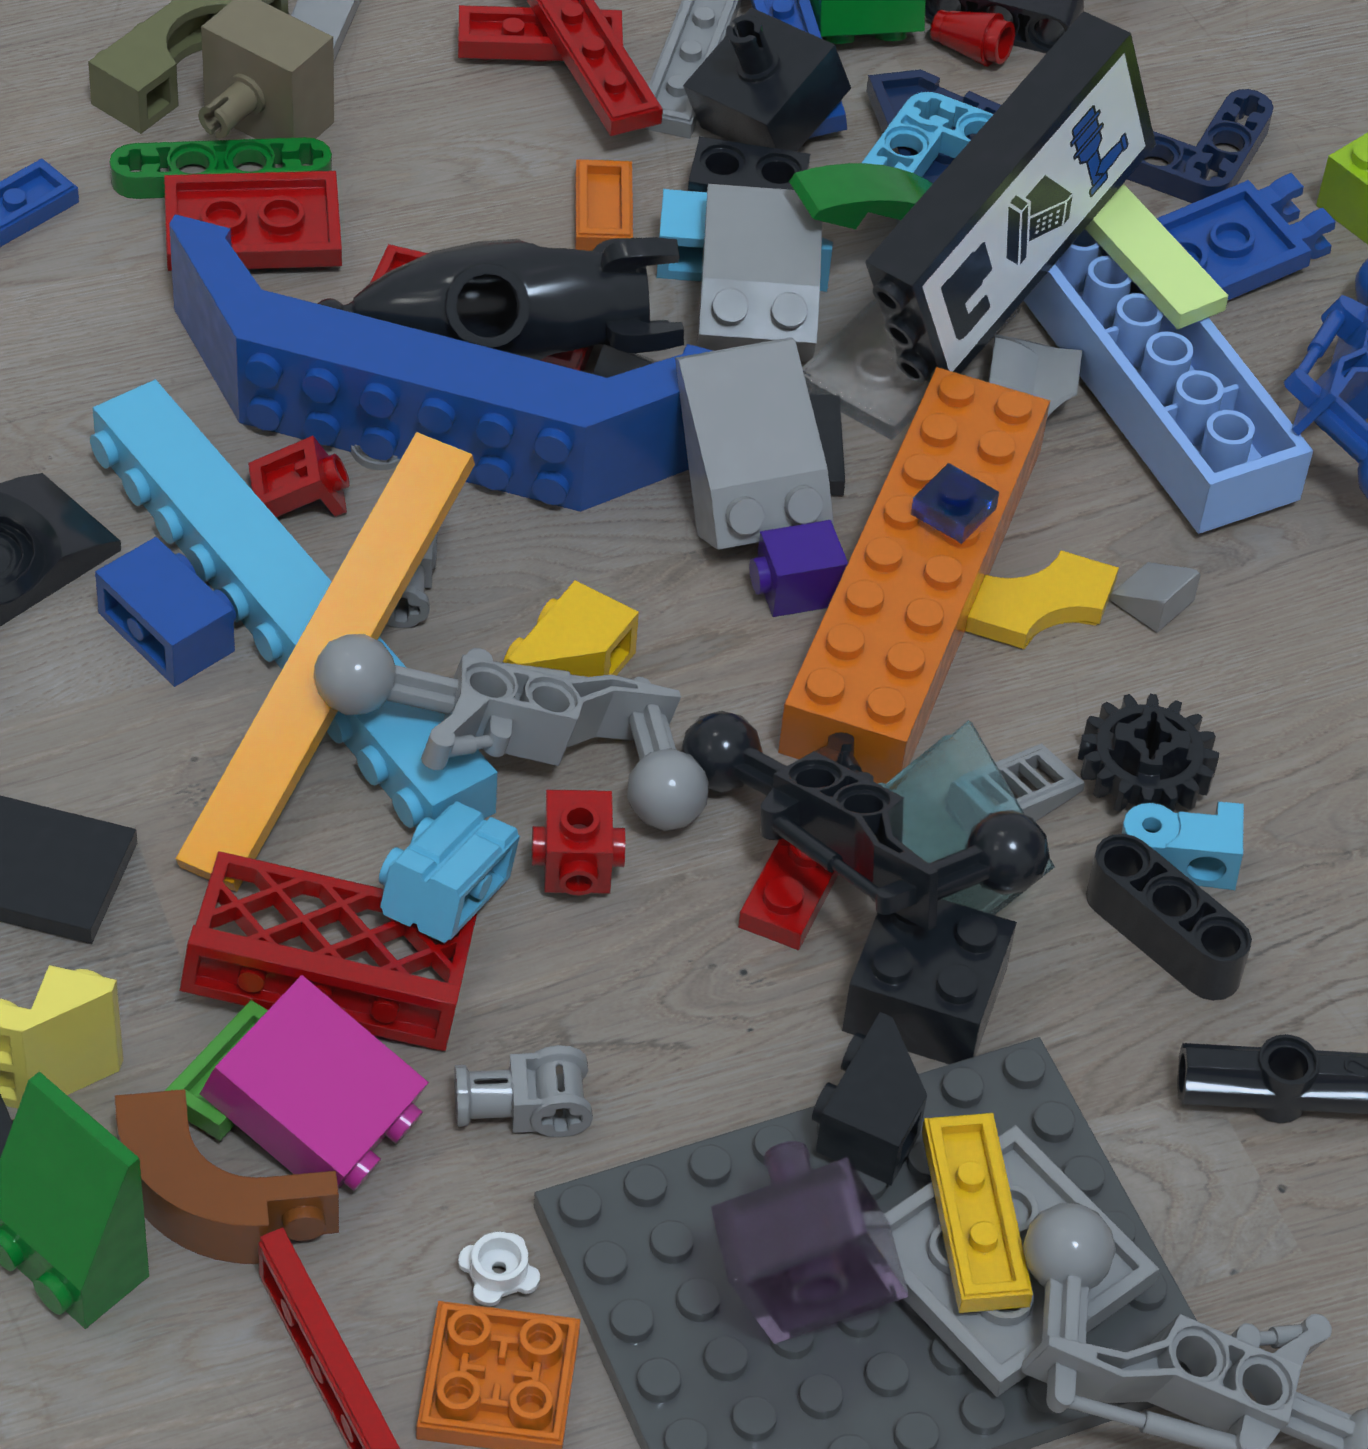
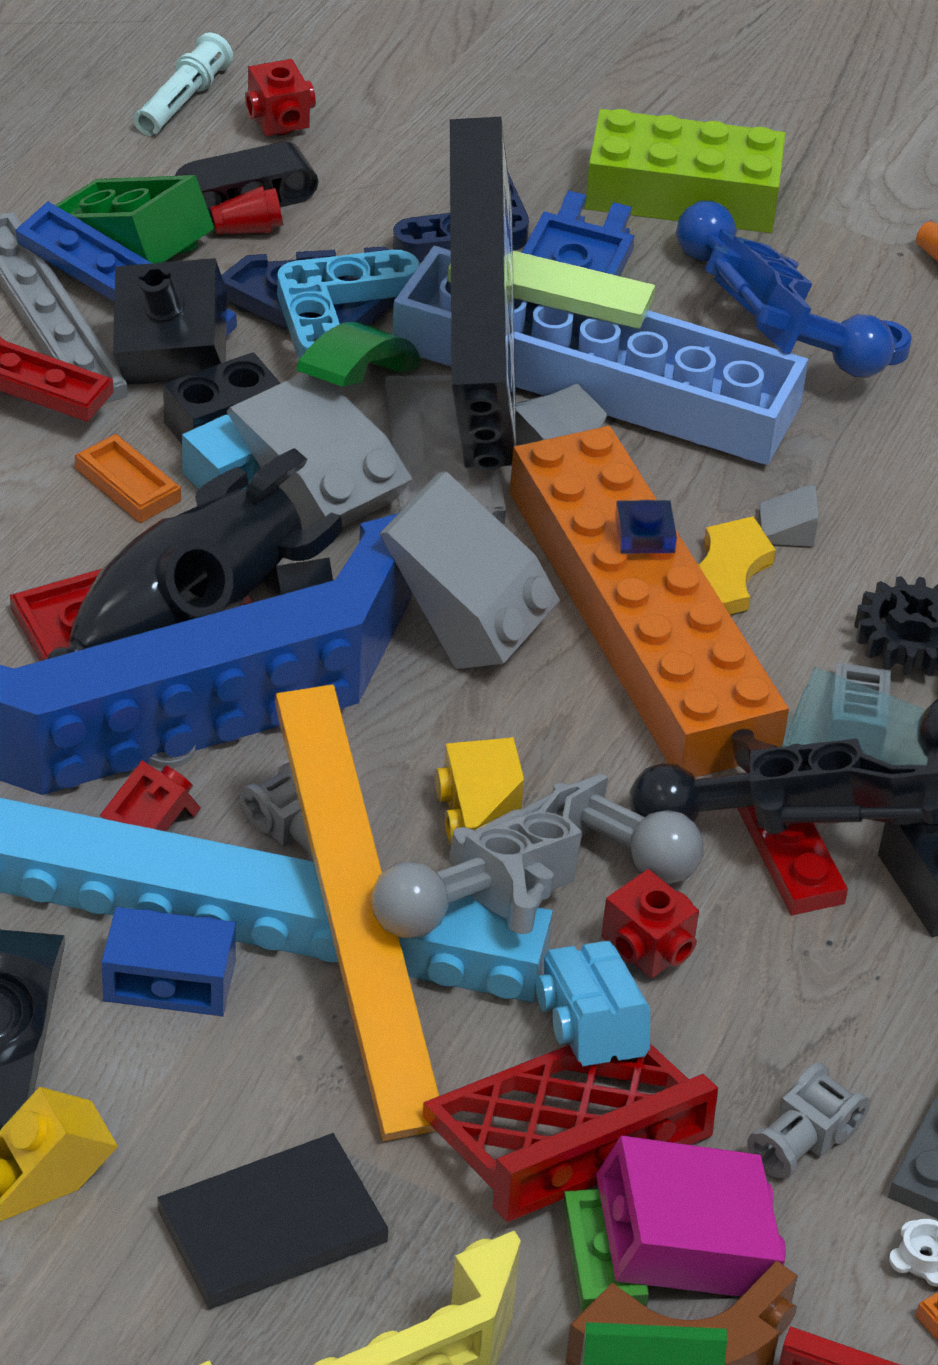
camera: 40 degrees left, 5 degrees down
(798, 567) = (565, 643): dark purple brick -> none

